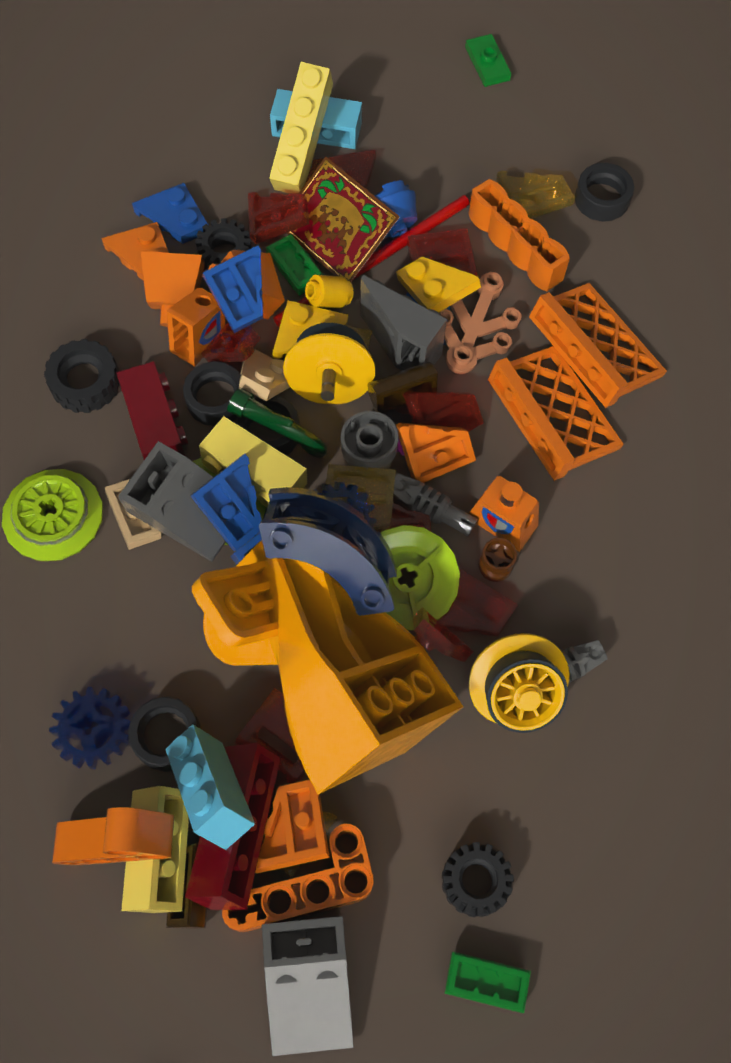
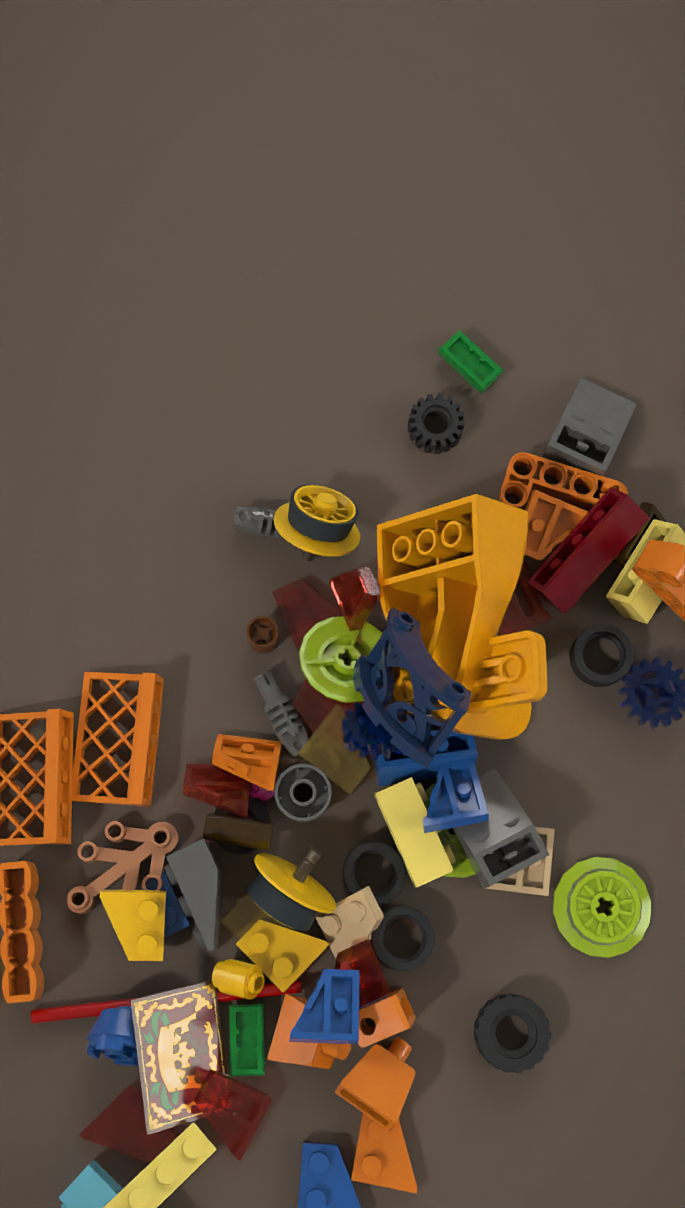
camera: 150 degrees left, 10 degrees up
(149, 409) = (470, 949): dark red brick -> none
(209, 787) = (595, 578): medium azure brick -> none
(221, 234) = (287, 1118): black tyre -> none
(244, 405) = (389, 892): dark green plant -> none
(445, 247) = (99, 959): clear red wing -> none
(507, 512) = (232, 669): orange torso -> none

